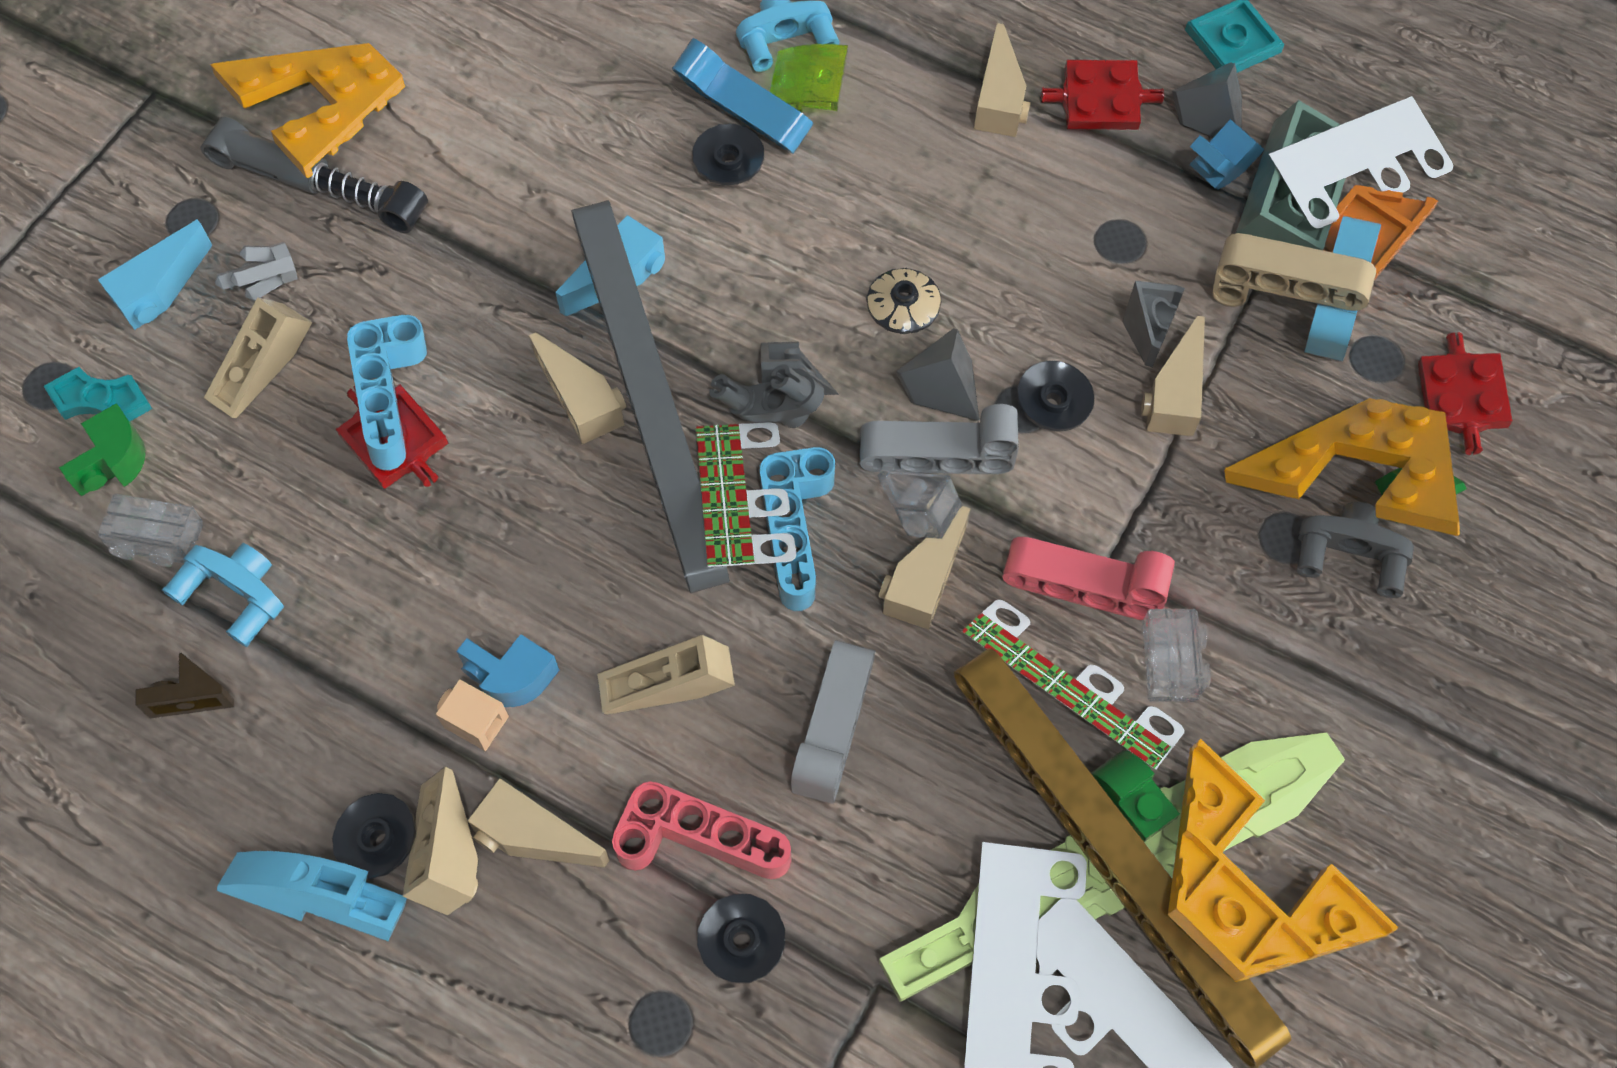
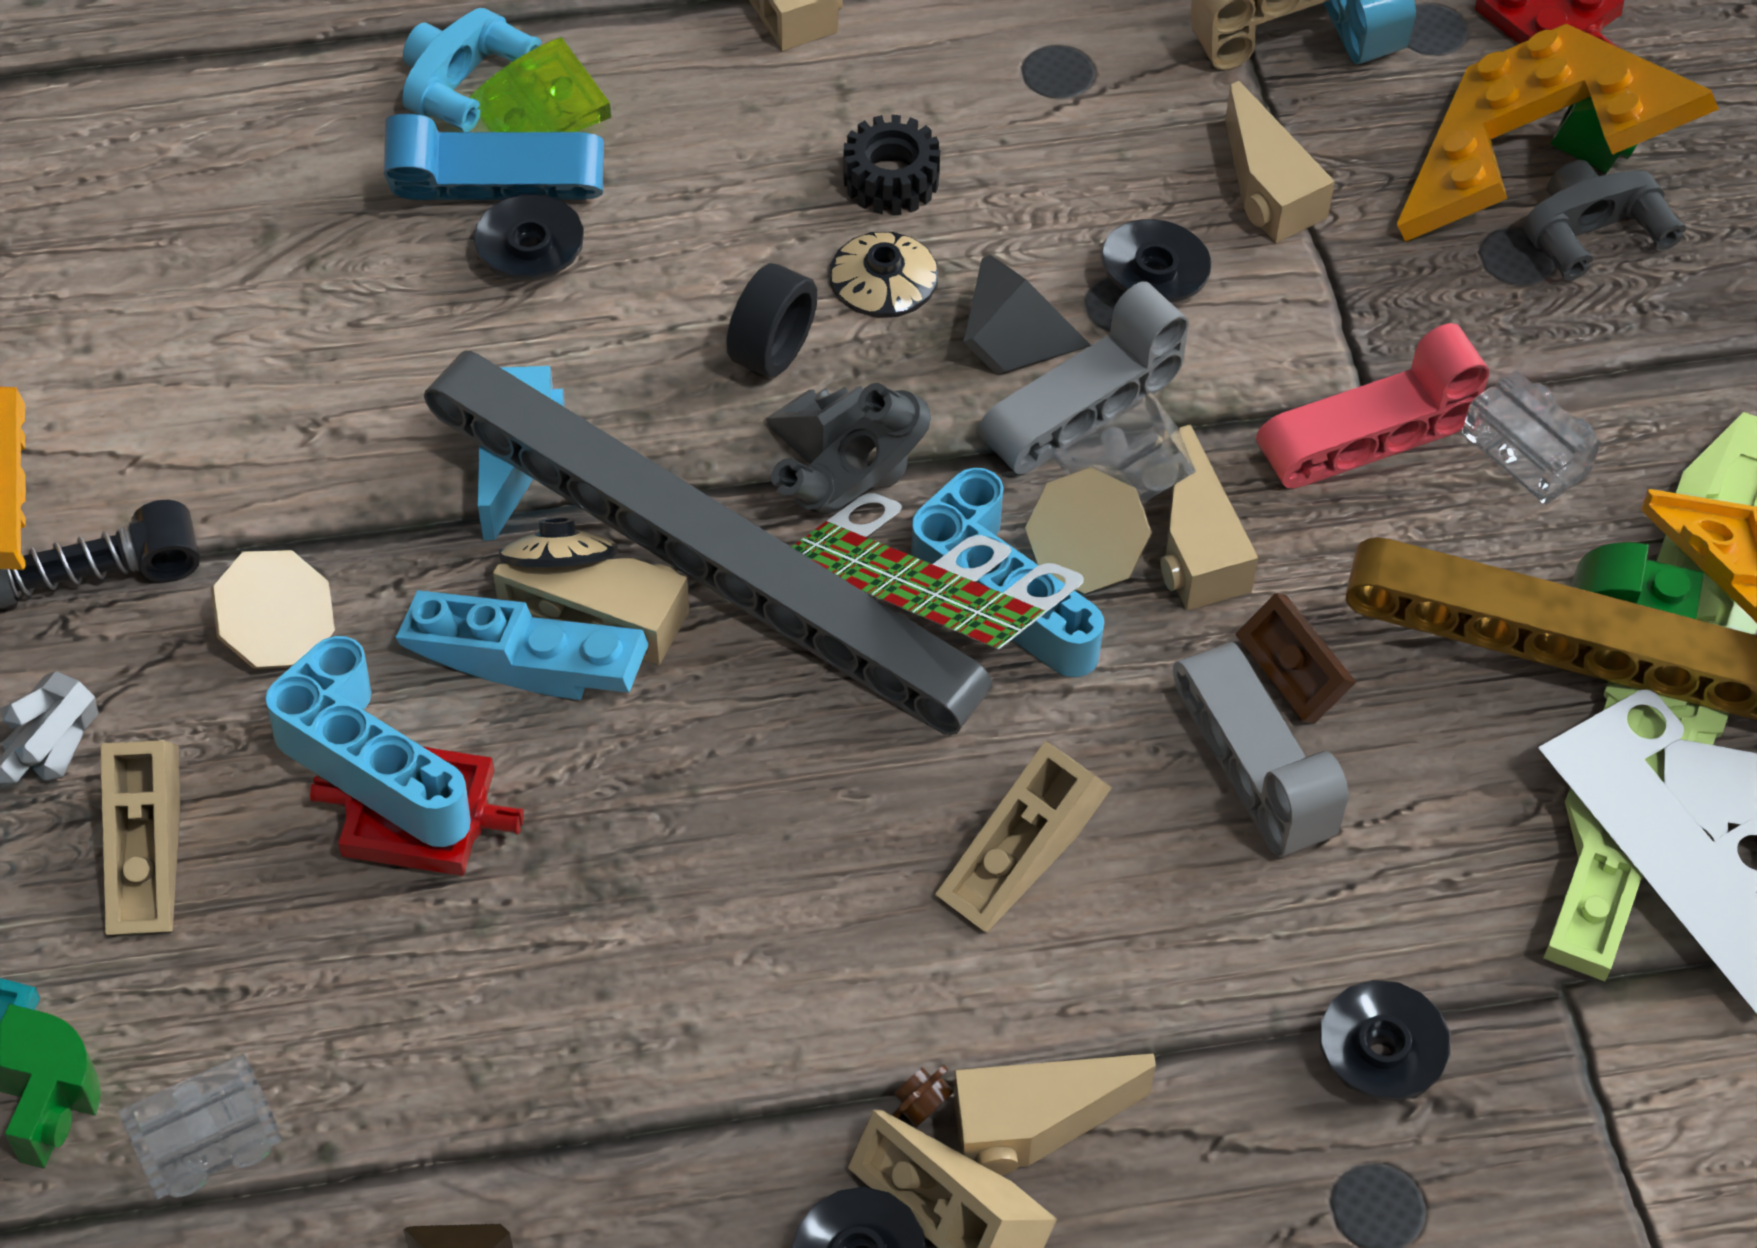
camera: 40 degrees left, 10 degrees down
(239, 573) = (378, 1097): medium azure connector -> none
(417, 279) = (272, 608): none -> tan piece
(471, 714) = (838, 1038): light nougat brick -> none
(482, 776) = (922, 1095): none -> reddish brown plate
(515, 384) = (512, 648): none -> medium azure slope
(515, 677) = (842, 970): dark azure brick -> none
(576, 344) = (558, 546): none -> dish
(703, 839) = (1313, 939): coral beam -> none
(784, 287) = (771, 320): none -> black tyre
(861, 530) = (1090, 528): none -> tan piece
(906, 686) = (1295, 658): none -> reddish brown plate
(963, 220) = (887, 186): none -> black tyre
(1074, 693) = (1471, 533): piece -> none
(1150, 316) = (1175, 124): dark grey slope -> none

